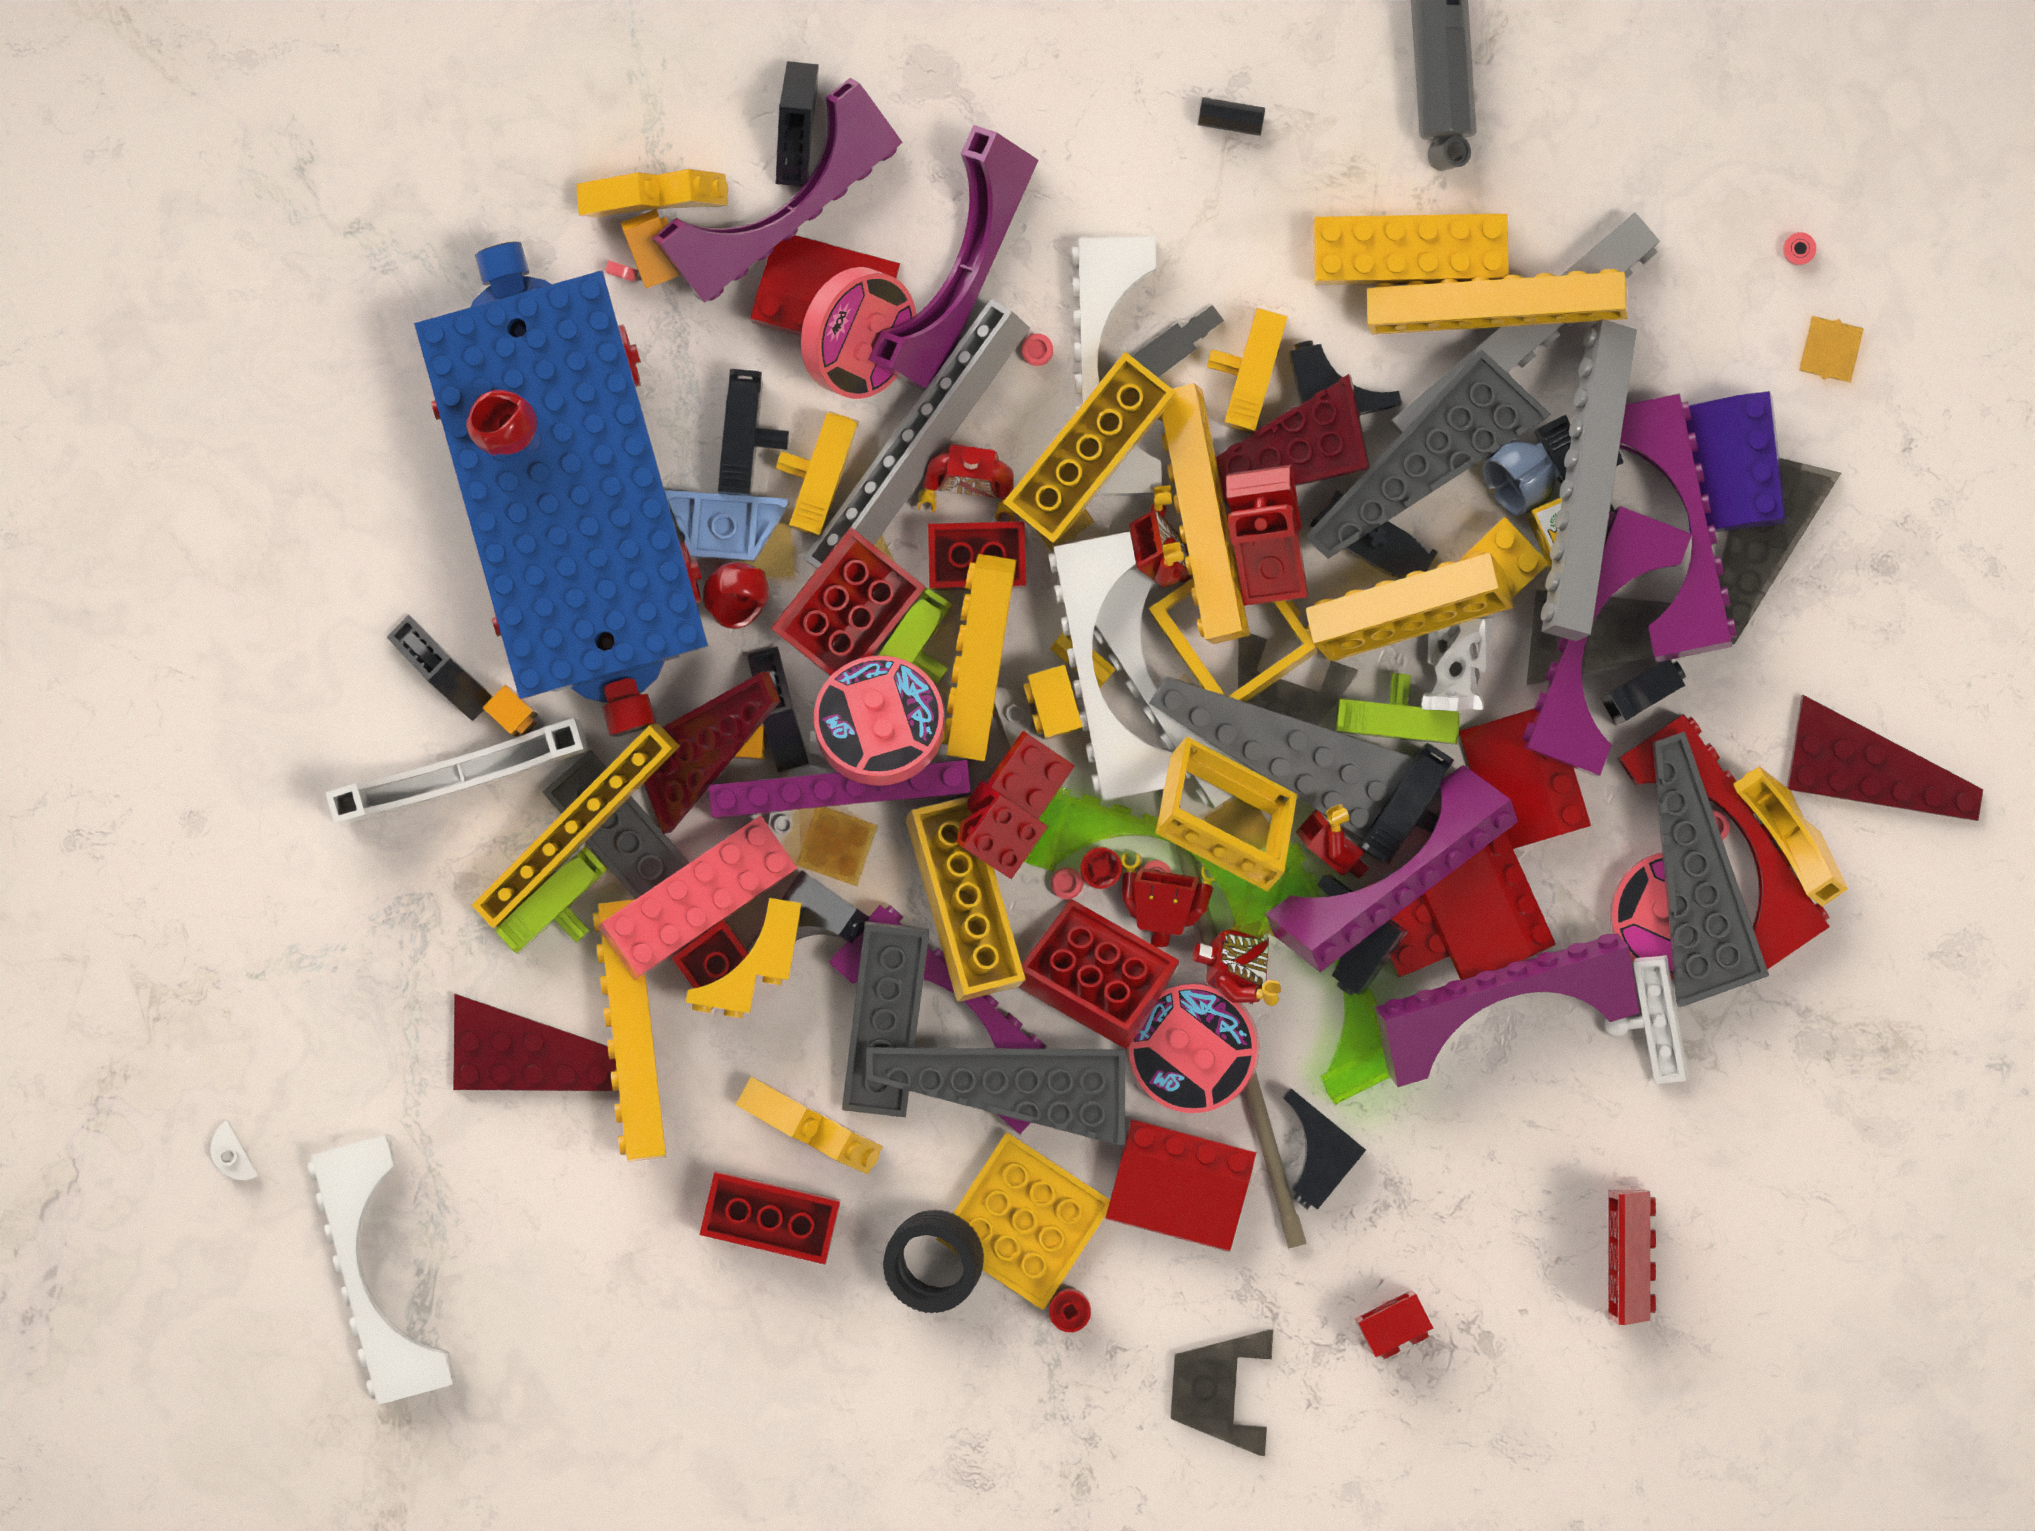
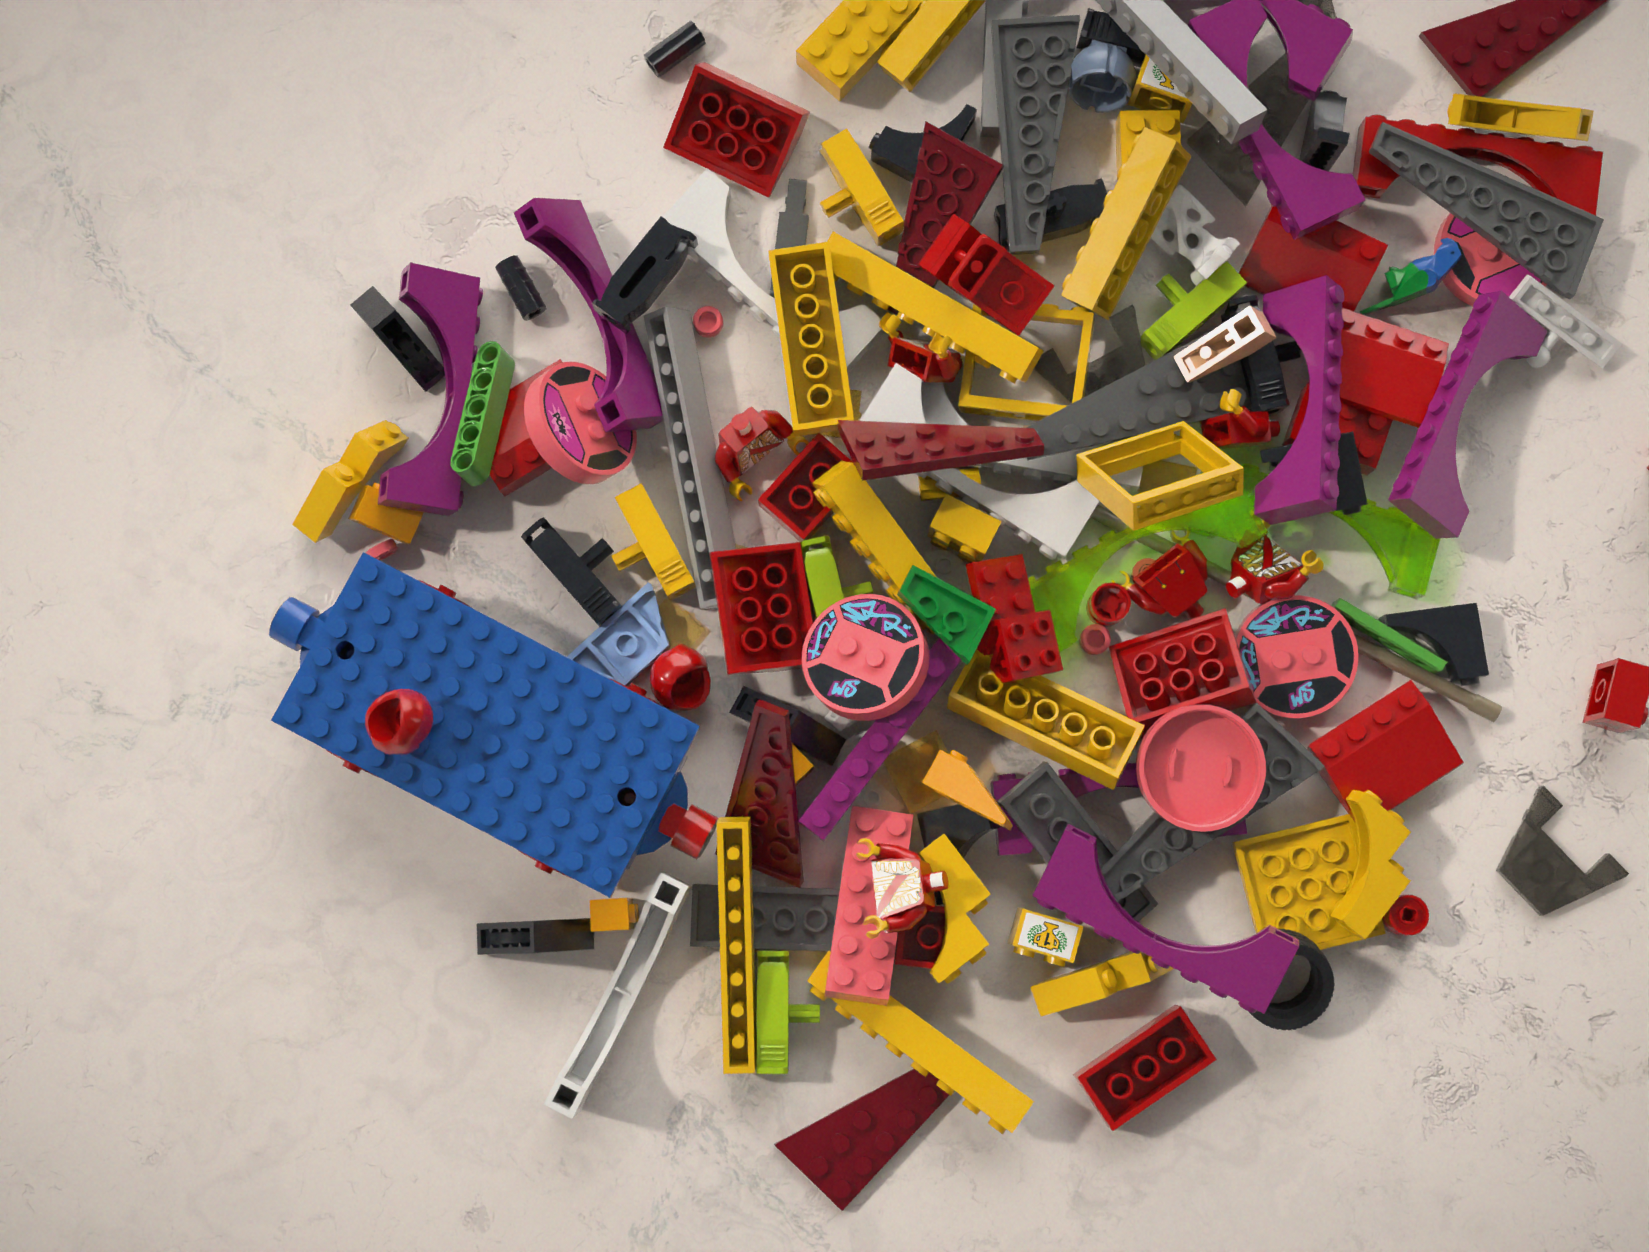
camera: 50 degrees left, 5 degrees down
(729, 908) = (901, 887): none -> torso
(757, 274) = (482, 413): none -> bright green beam
(798, 1052) = (1045, 935): none -> brick
(851, 884) = (961, 784): none -> light orange slope
(854, 1044) = (1241, 969): none -> magenta arch
(926, 179) = (520, 287): none -> black axle
(970, 750) = (947, 611): none -> green wing
(1022, 270) = (645, 274): none -> black piece
(1031, 1050) = (1201, 767): none -> coral brick
(1070, 608) = (912, 448): none -> dark red wing
(1074, 1264) = (1377, 877): none -> yellow arch
(1212, 226) = (735, 128): none -> red slope
(1277, 1106) = (1389, 637): none -> bright green tile
(1384, 771) = (1225, 344): none -> light nougat slope
(1593, 872) = (1419, 276): none -> animal

